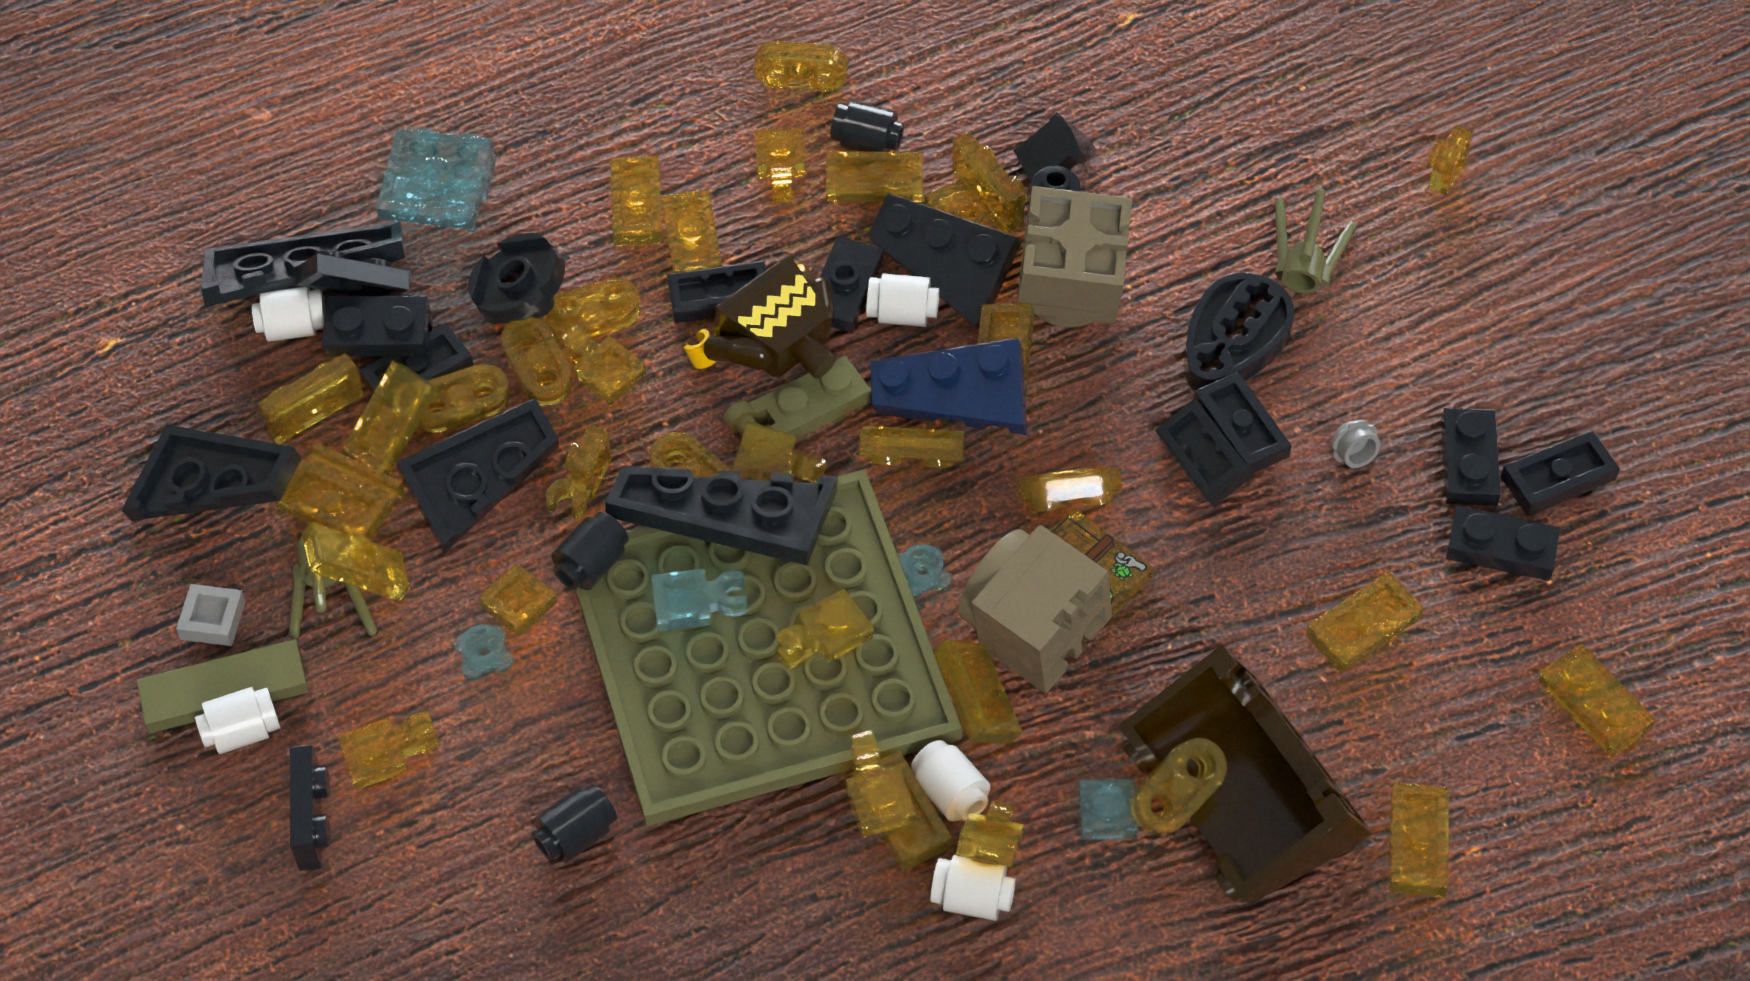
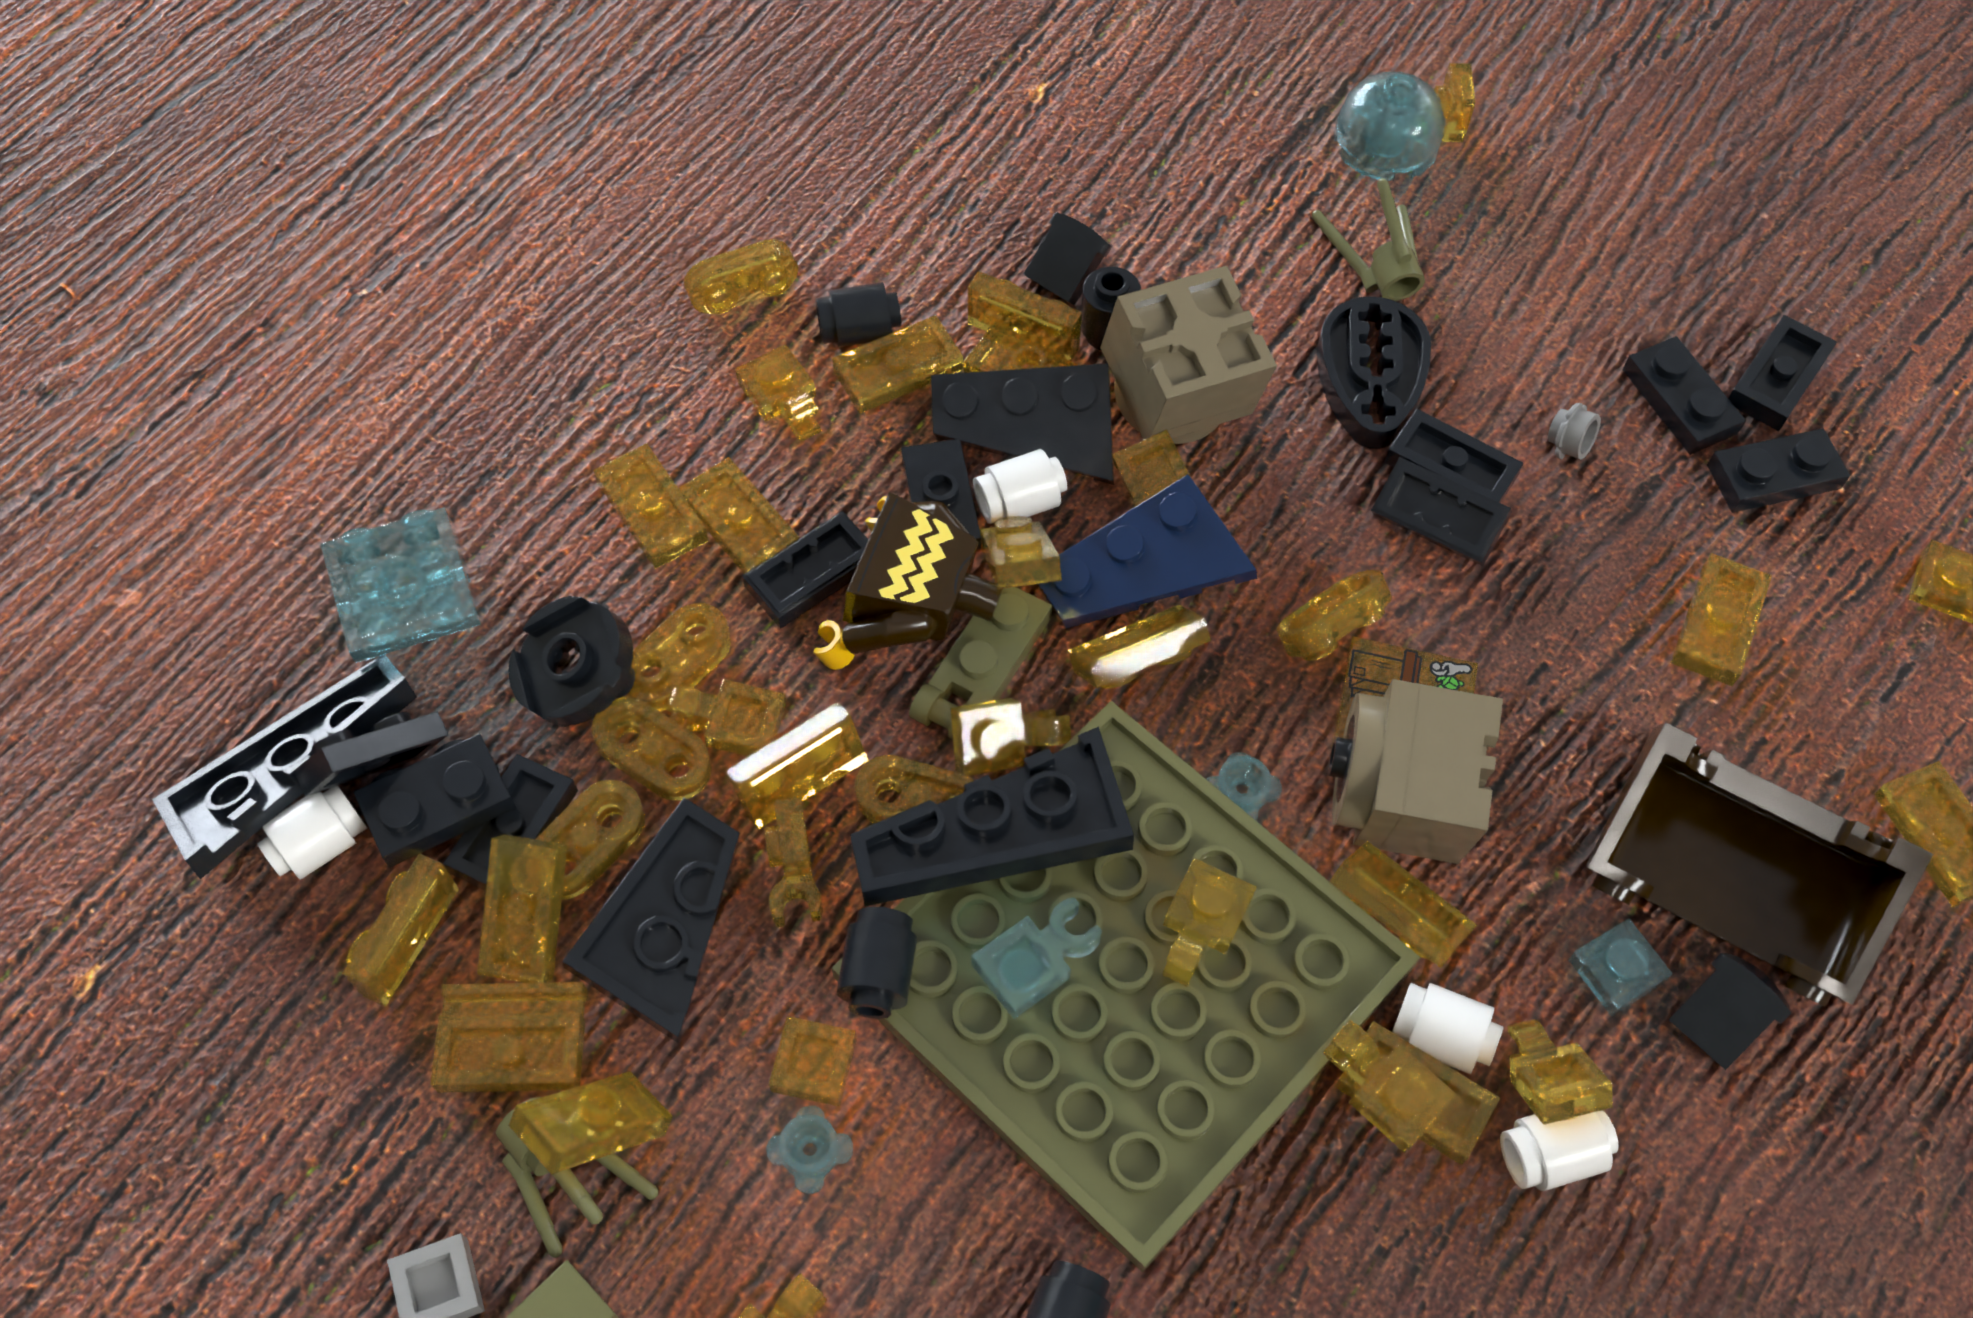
camera: 30 degrees left, 5 degrees up
(209, 472) = (325, 1093): black wing -> none
(626, 411) = (798, 764): none -> clear yellow plate
(865, 341) = (1020, 553): none -> clear yellow plate
(1161, 865) = (1730, 1009): none -> black tile
(1177, 788) = (1688, 904): clear yellow plate -> none
(1384, 157) = (1390, 125): none -> clear light blue cylinder

